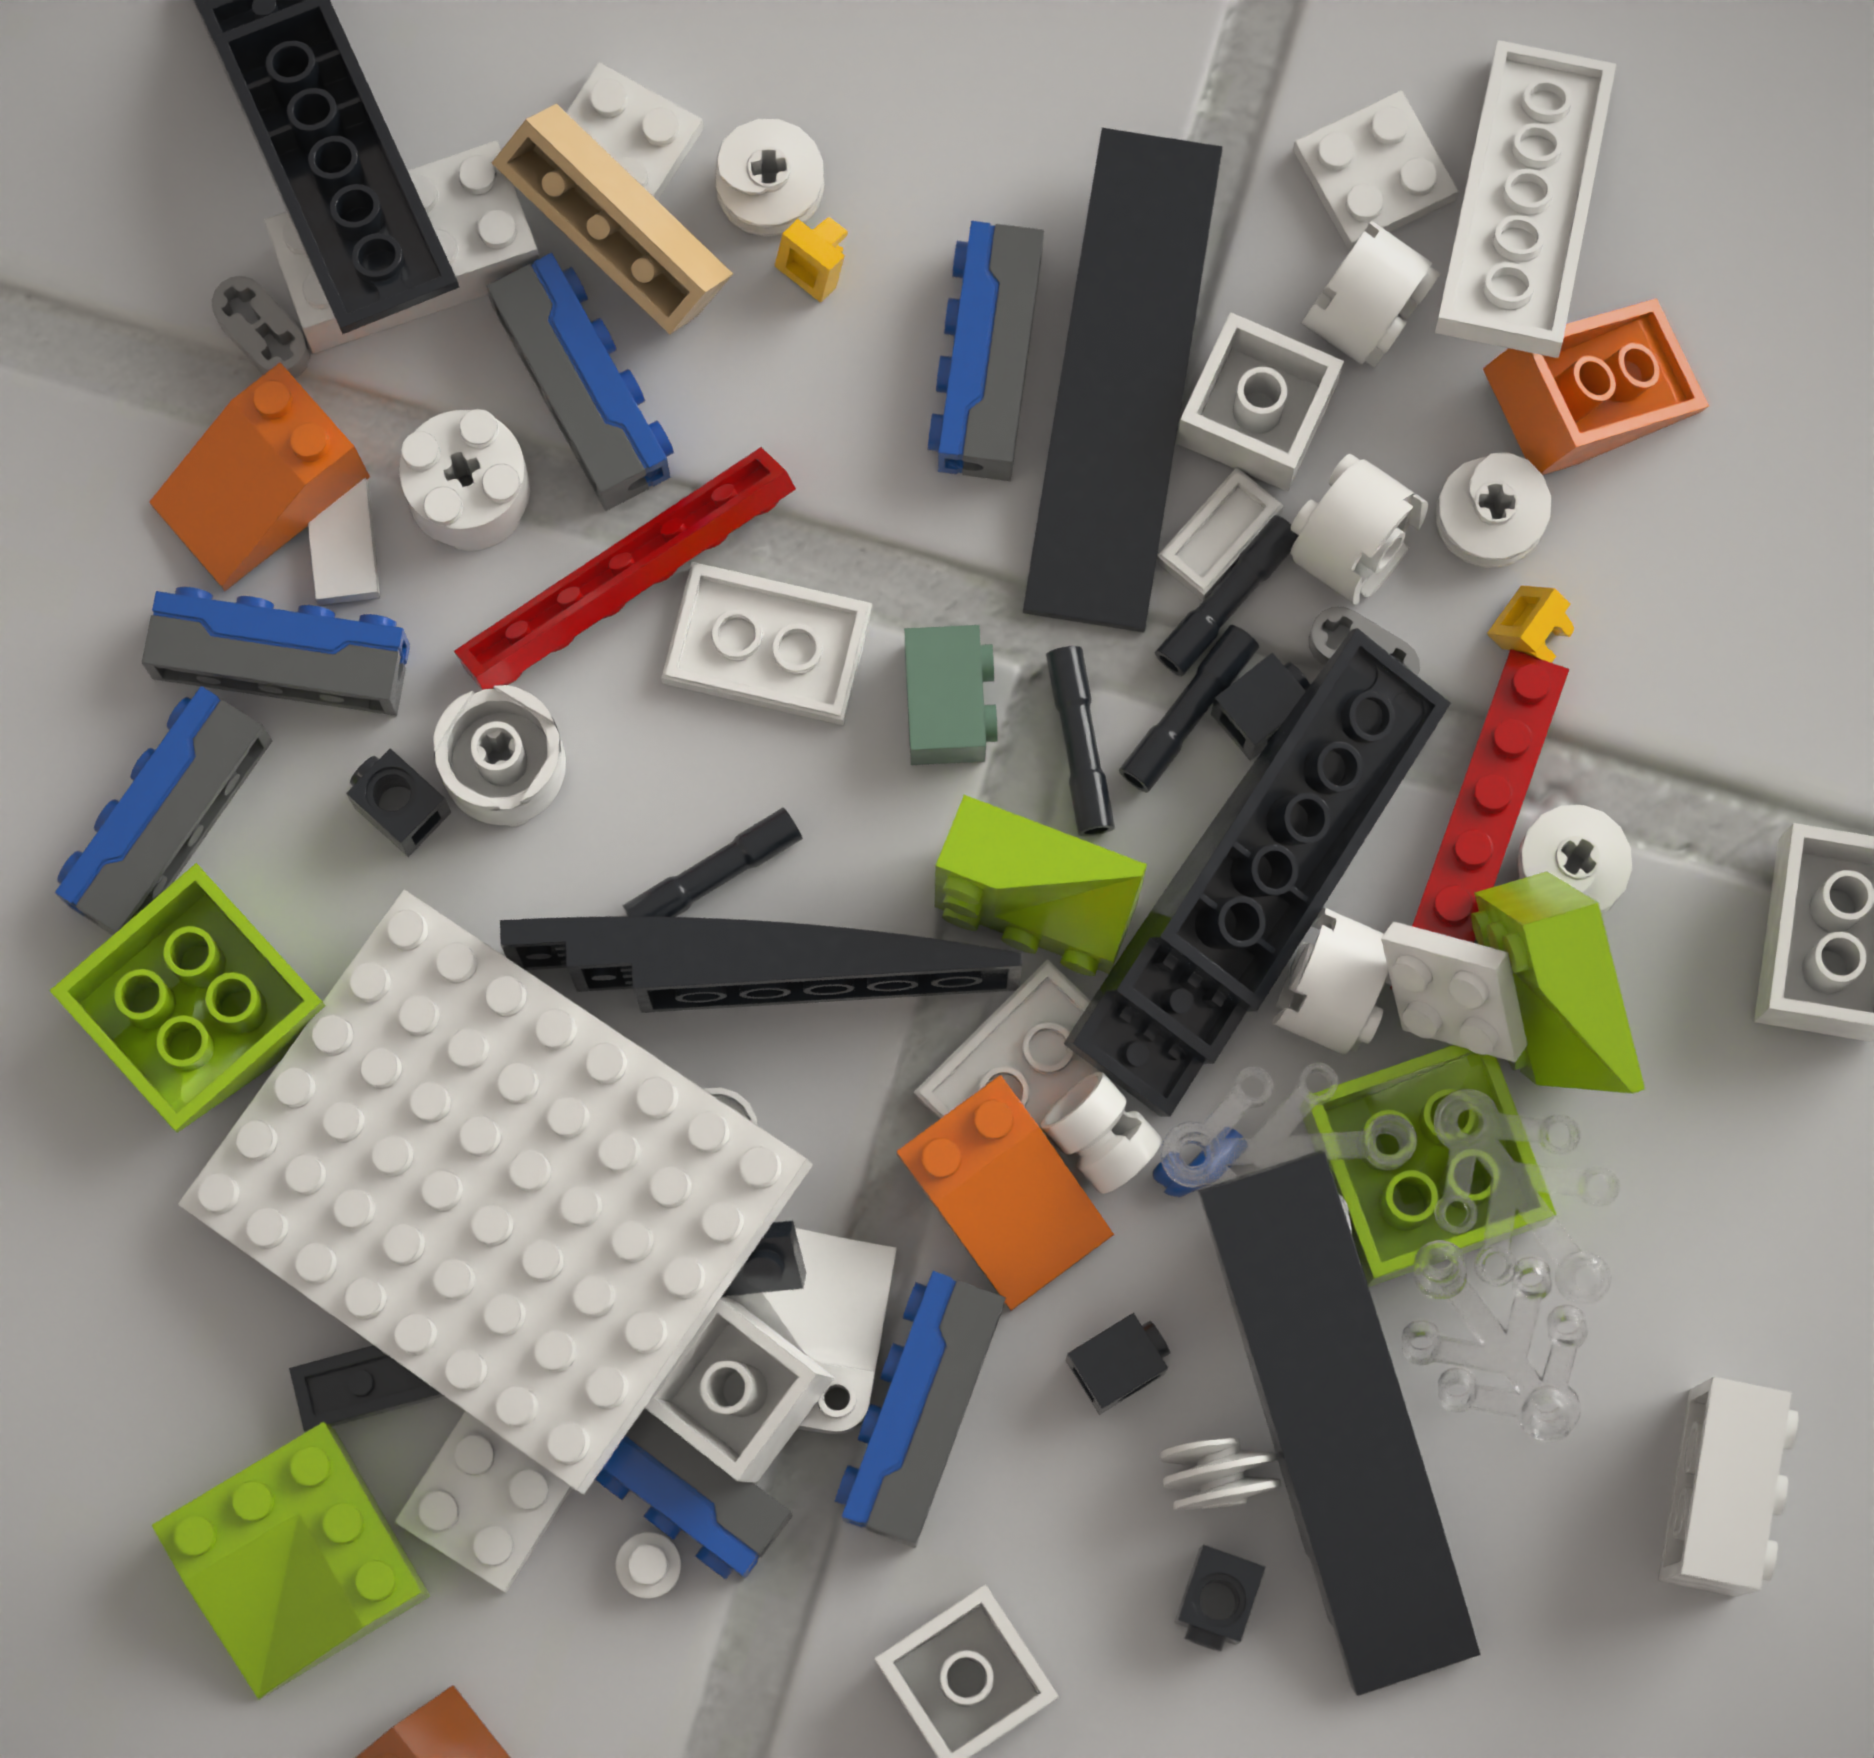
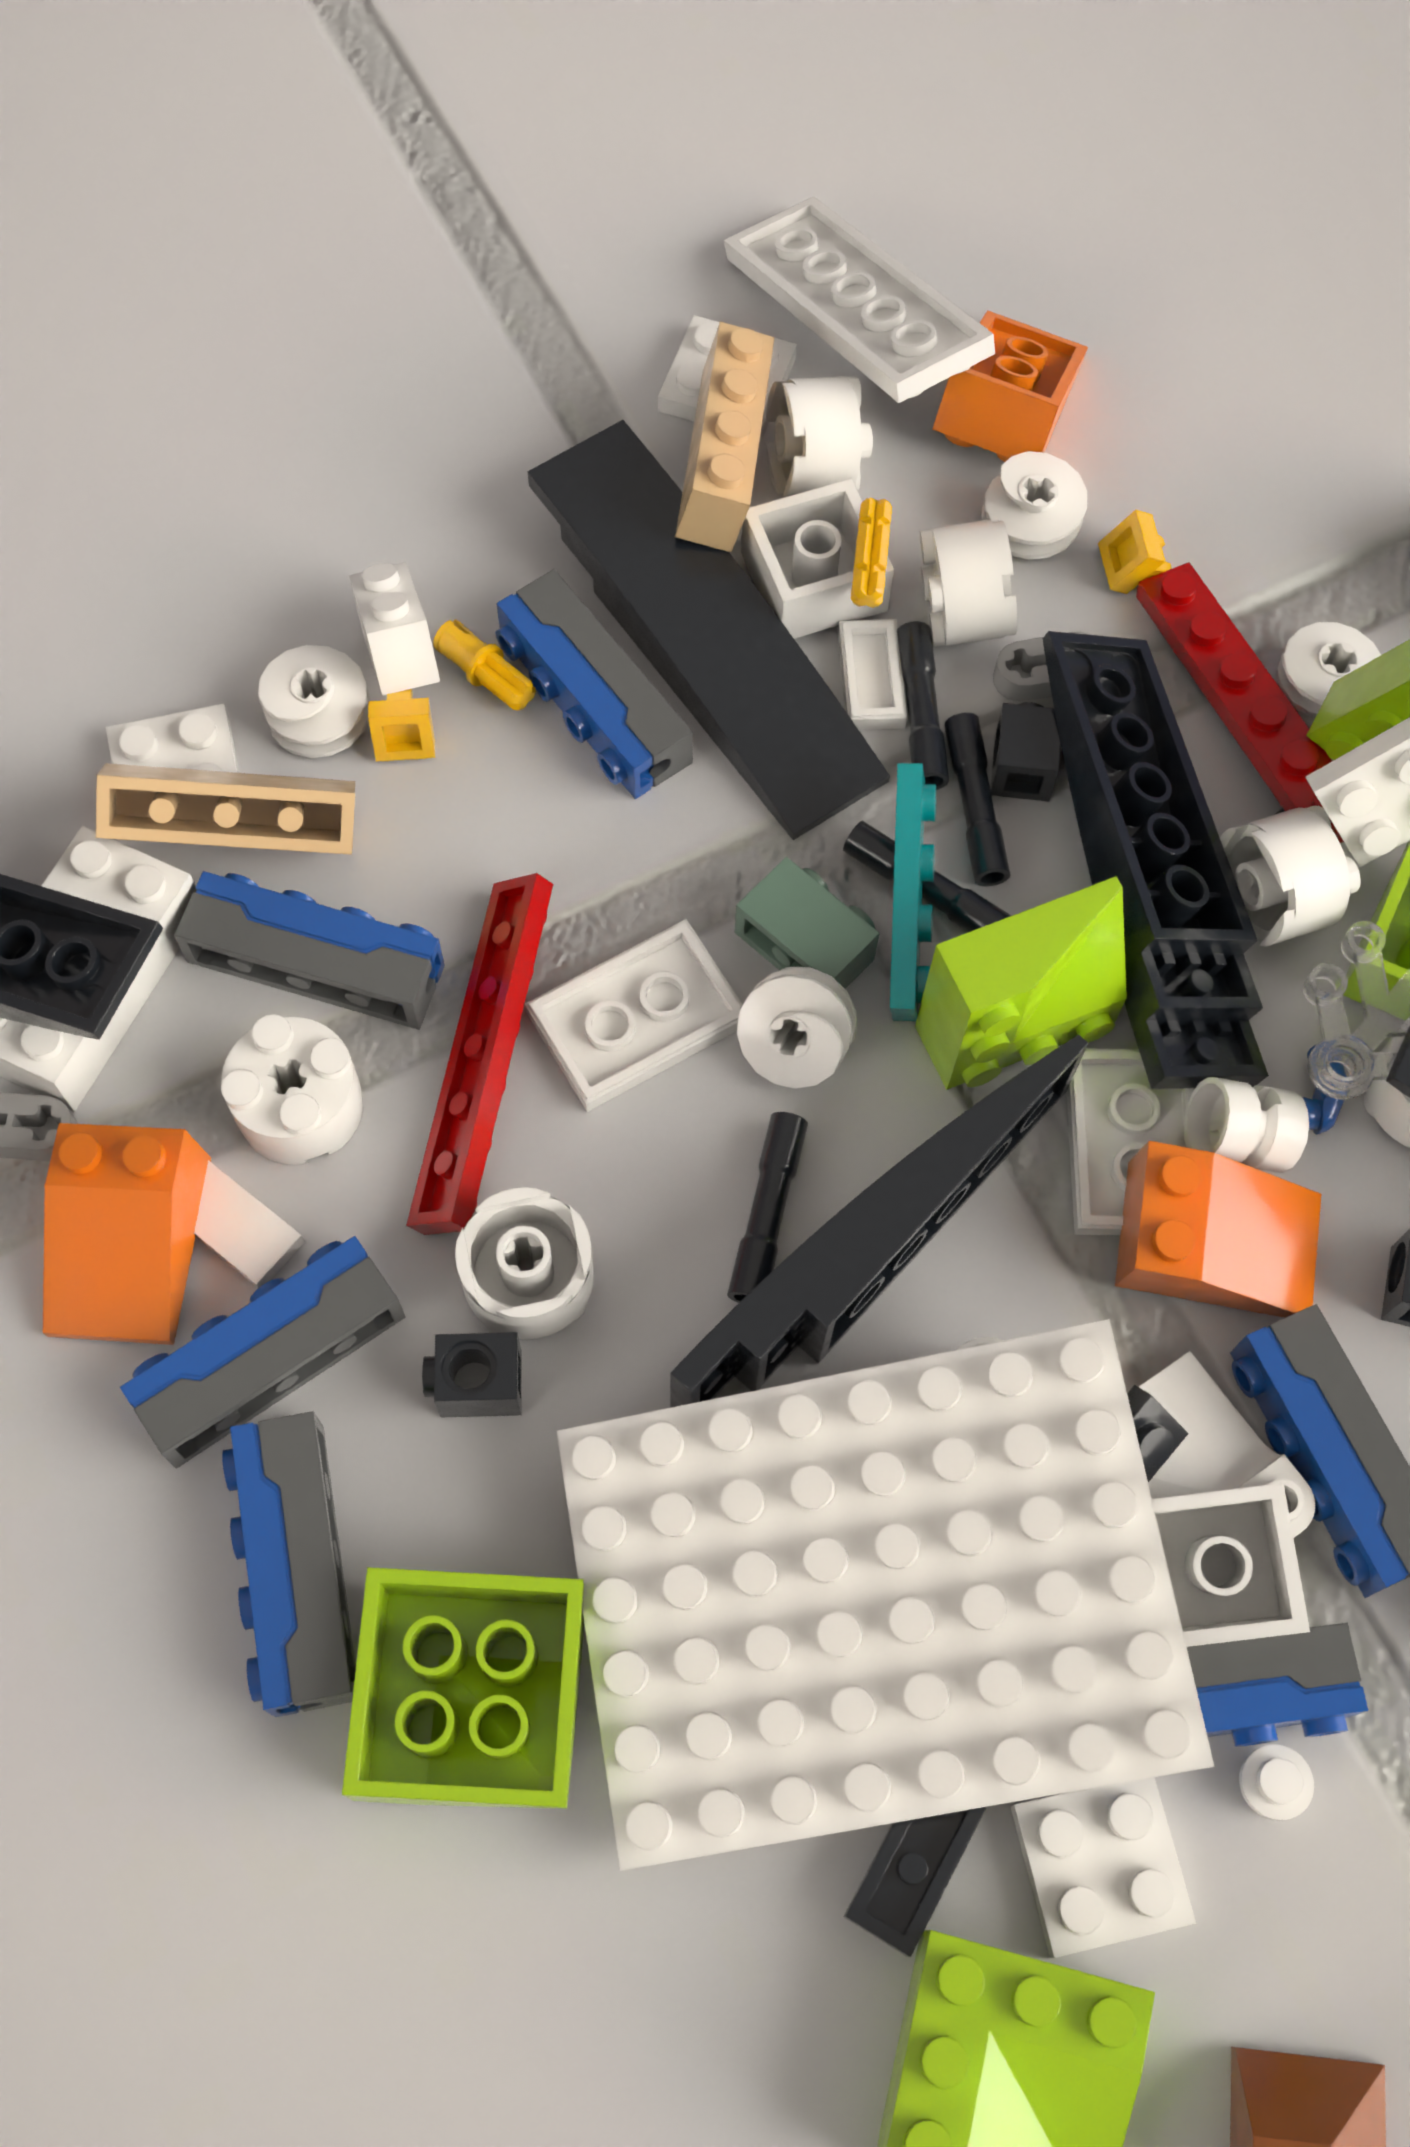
camera: 45 degrees left, 10 degrees down
(859, 760) = (820, 1009): none -> white piece
(874, 172) = (394, 627): none -> white brick
(925, 259) = (484, 664): none -> yellow axle
(1058, 719) = (912, 866): none -> teal plate
(1279, 235) = (725, 437): none -> tan brick
(1283, 440) = (871, 552): none -> yellow axle

